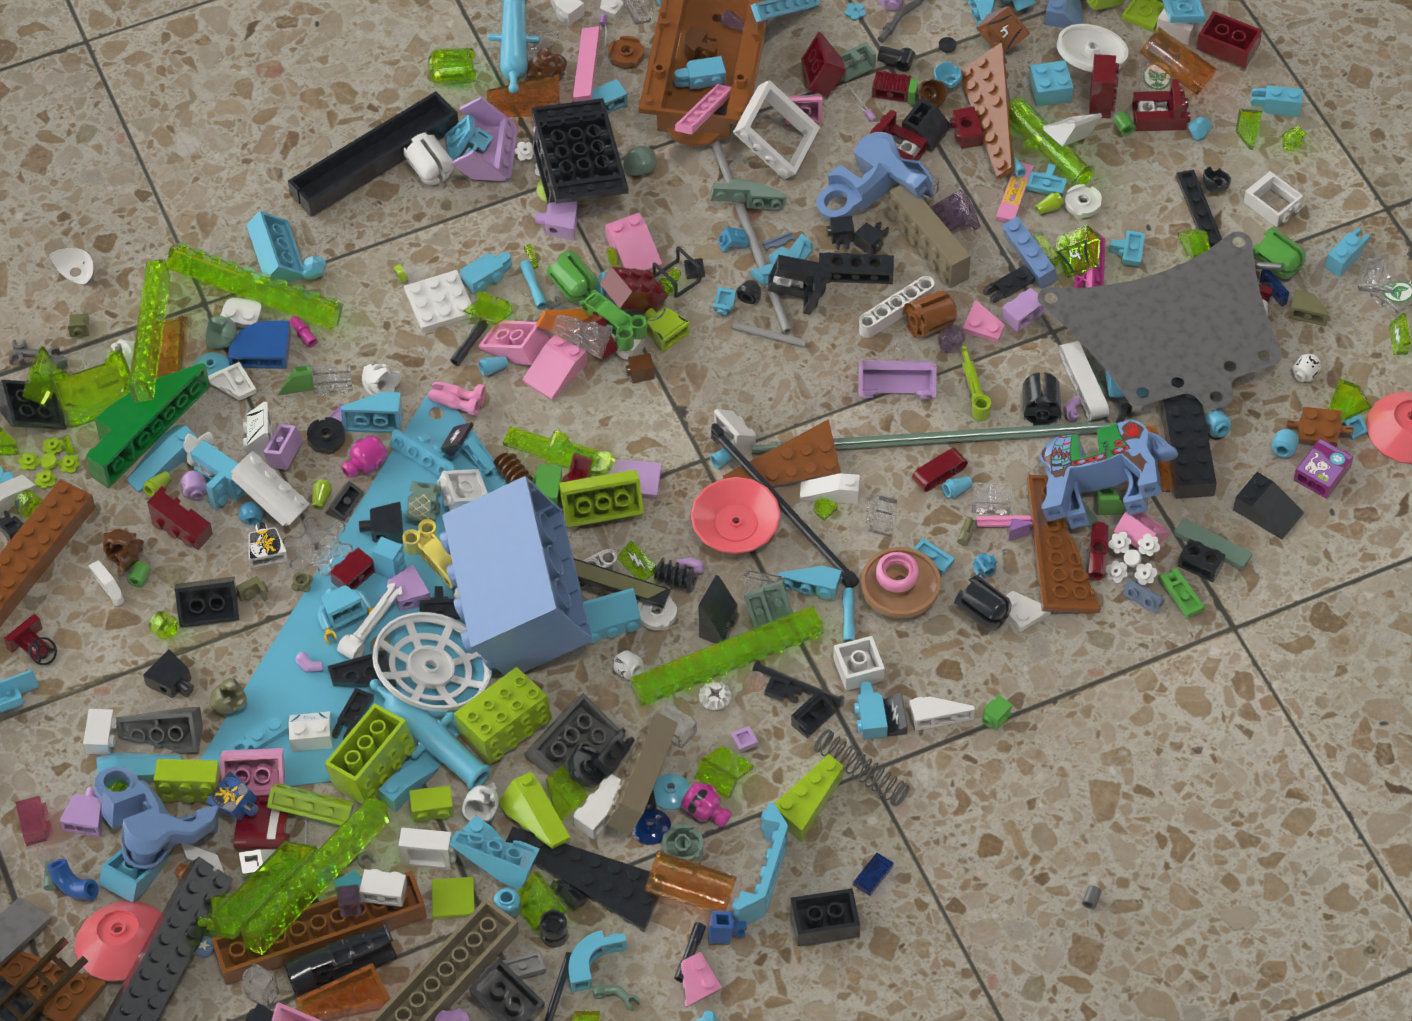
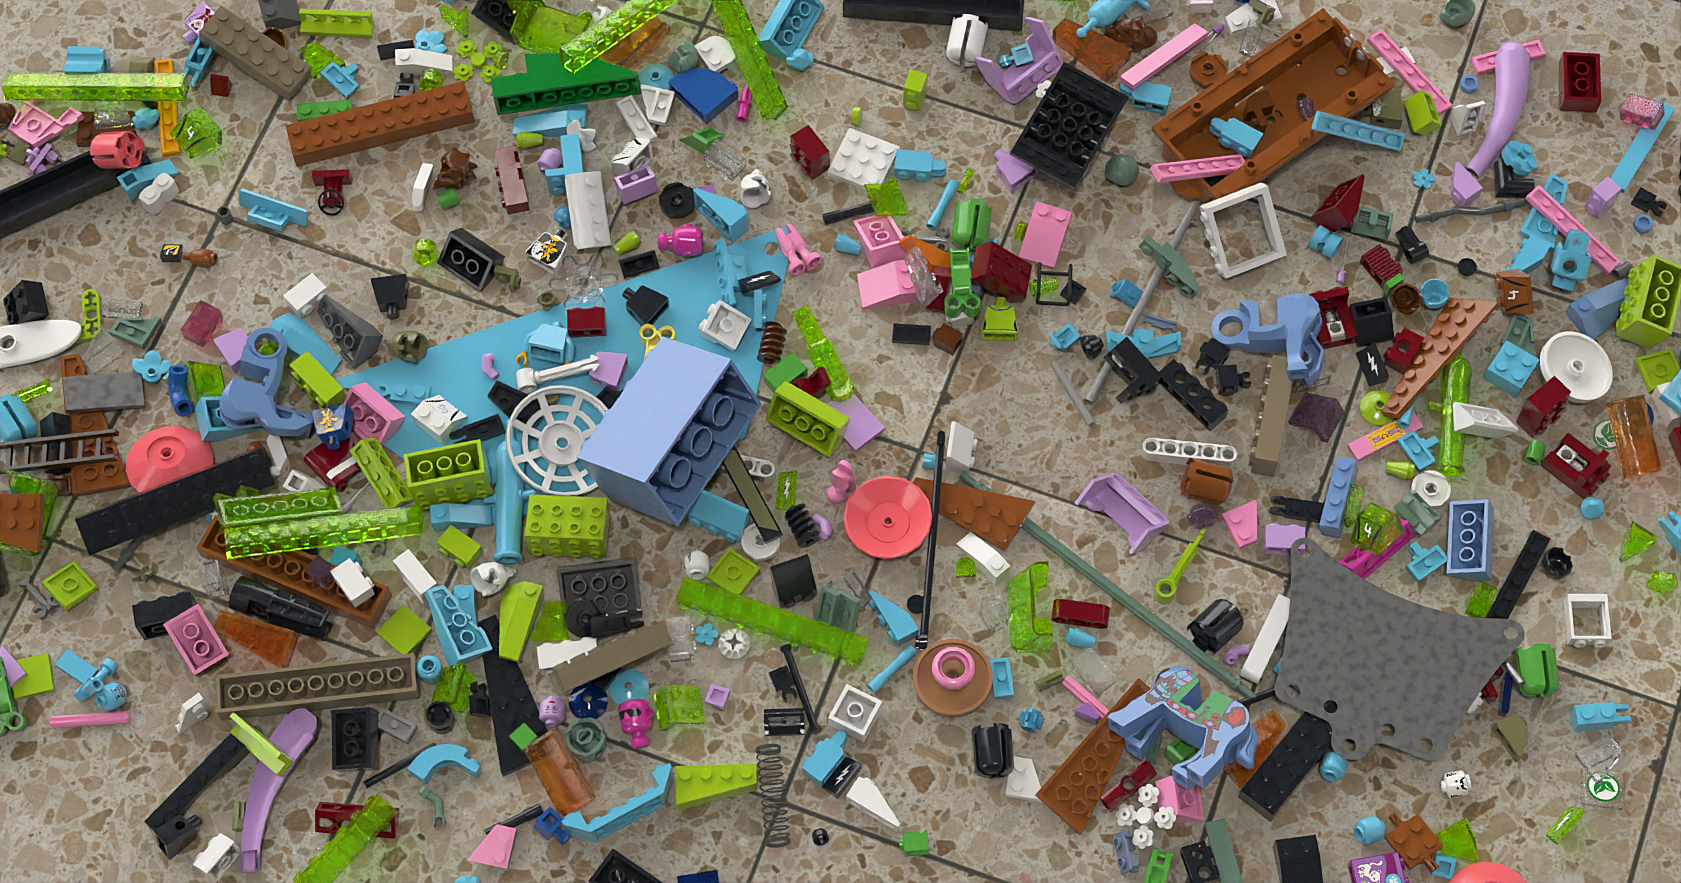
camera: 45 degrees right, 10 degrees up
(24, 886) = (151, 364): none -> medium azure plate
(84, 859) = (205, 379): none -> clear neon green slope
(226, 406) = (635, 119): none -> white tile
(388, 558) = (615, 334): medium azure brick -> none
(396, 321) = (809, 152): none -> dark red brick
(423, 501) = (683, 312): sand green brick -> none
(428, 220) = (915, 90): none -> lime brick
(459, 136) = (1007, 40): medium azure wing -> none
(608, 387) = (911, 334): none -> black tile
(634, 852) = (552, 711): none -> lavender head
(634, 886) = (523, 736): none -> bright green tile
(659, 648) = (733, 572): none -> lime tile
(674, 520) = (843, 481): none -> bright pink piece
(688, 706) = (706, 634): none -> medium azure plant
(809, 105) = (1293, 229): bright pink slope -> none
(816, 559) = (915, 604): none -> black piece
(837, 98) = (1326, 242): none -> medium azure wheel
(916, 504) = (1026, 631): none -> clear neon green windscreen
(924, 767) = (820, 841): none -> black hinge
(956, 153) = (1372, 365): none -> black slope
(986, 181) = (1370, 410): none -> lime dish
(1028, 55) = (1521, 333): none -> sand green wing
(1094, 218) = (1417, 513): none -> sand green brick
(1145, 209) = (1470, 539): none -> medium blue slope

